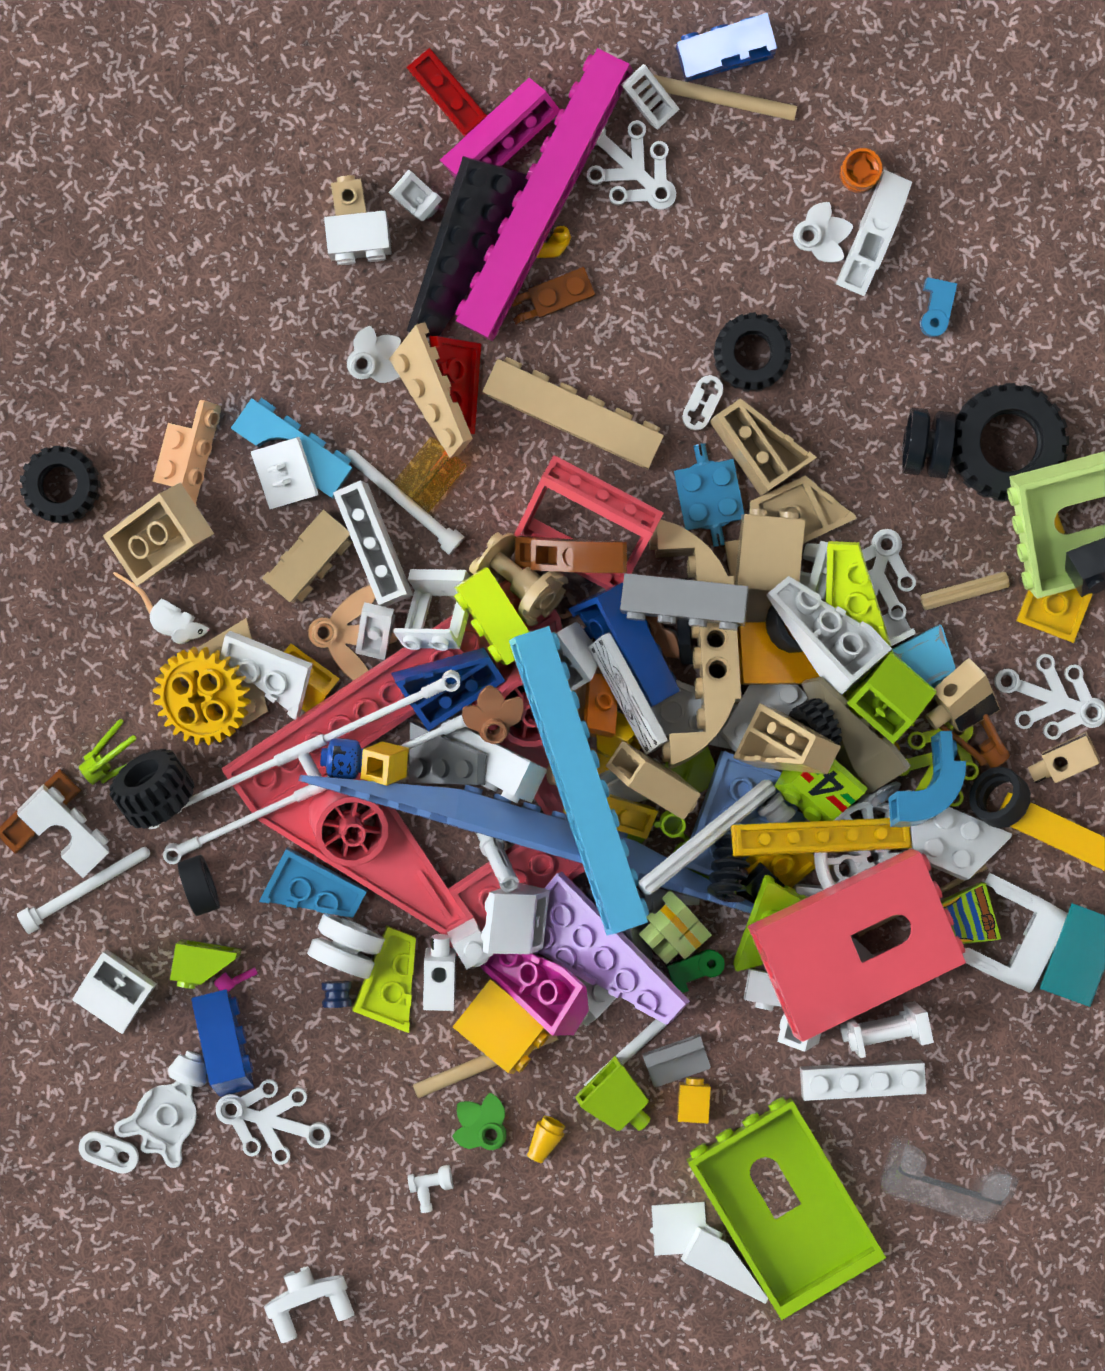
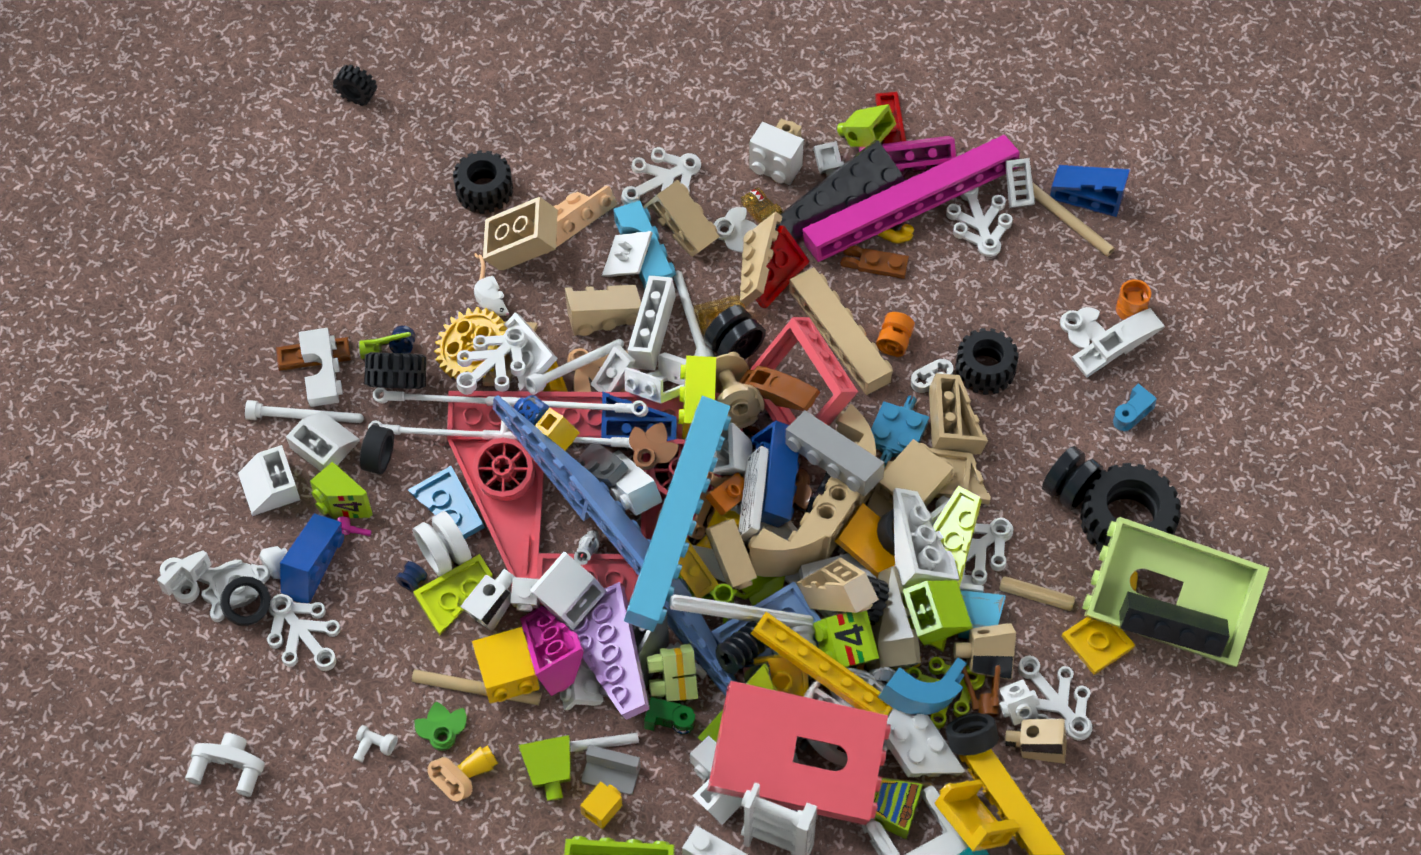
camera: 35 degrees right, 30 degrees down
(117, 1142) = (190, 567): none -> white slope
(121, 732) = (402, 345): none -> dark blue wheel
(133, 910) = (321, 440): none -> white slope
(214, 1144) = (239, 582): none -> black tyre
(248, 710) = (492, 358): none -> white plant
(252, 341) = (663, 175): none -> white plant
(310, 703) = (536, 382): none -> white piece
(313, 388) = (683, 218): none -> tan wedge
(384, 311) = (759, 205): none -> clear yellow leg
(433, 129) = (867, 125): none -> lime torso
(472, 503) = (735, 332): none -> black wheel
(531, 1173) = (450, 779): none -> light nougat beam
(635, 370) = (895, 334): none -> orange wheel
(1025, 736) = (1018, 702): none -> white brick
(1054, 885) = (972, 818): none -> yellow panel

